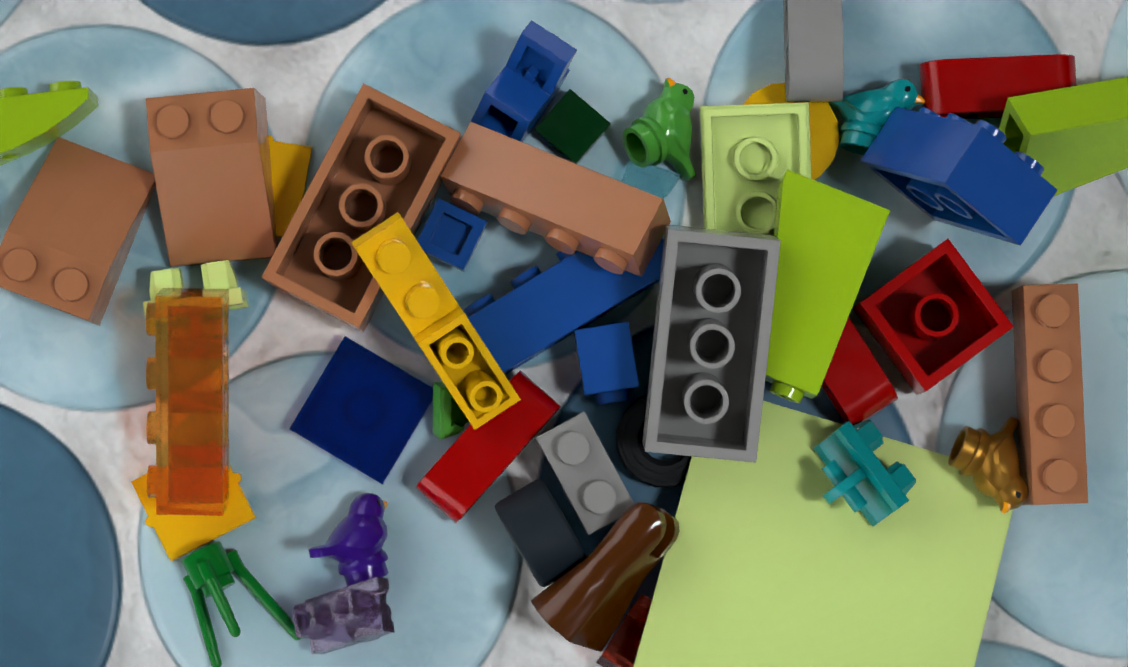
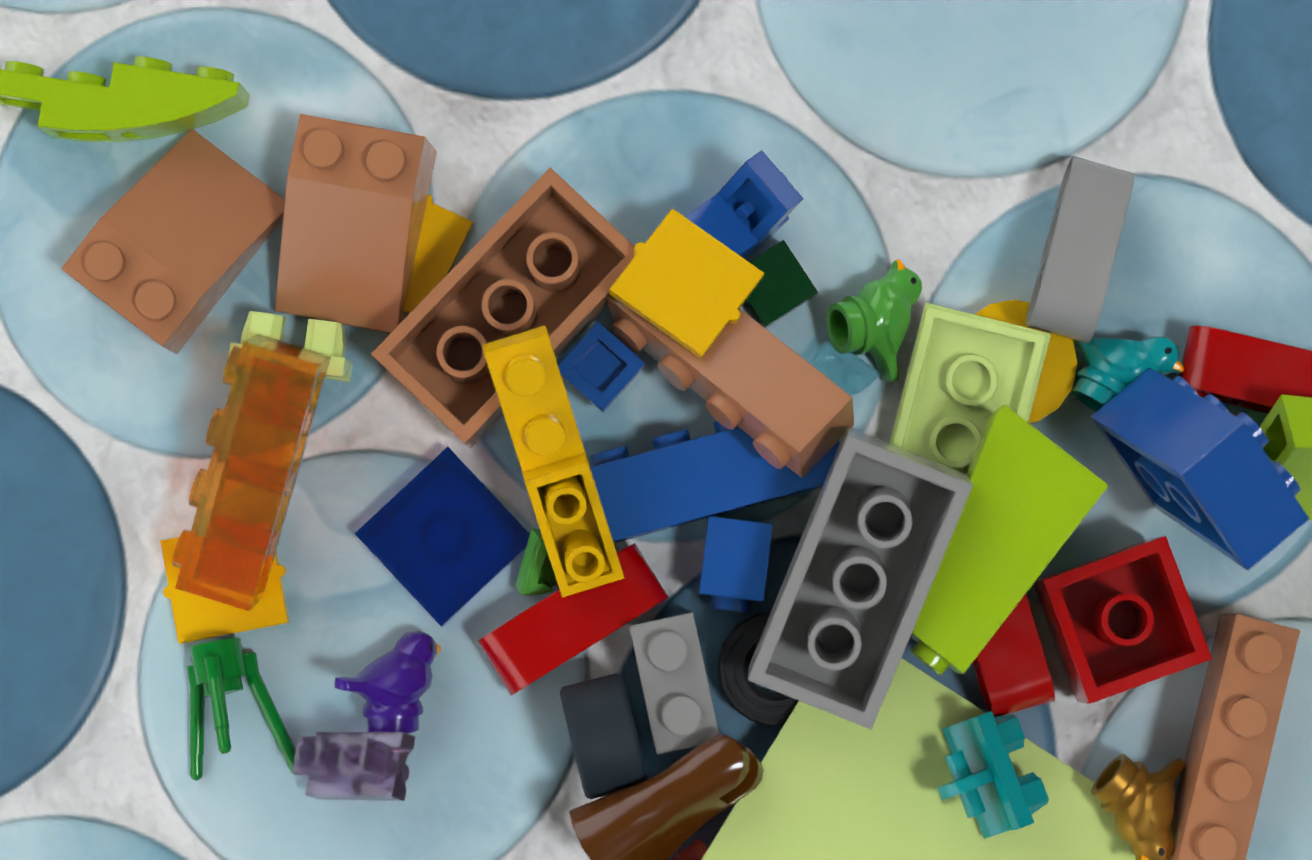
camera: 25 degrees right, 0 degrees up
(501, 145) = (686, 283): none -> yellow piece

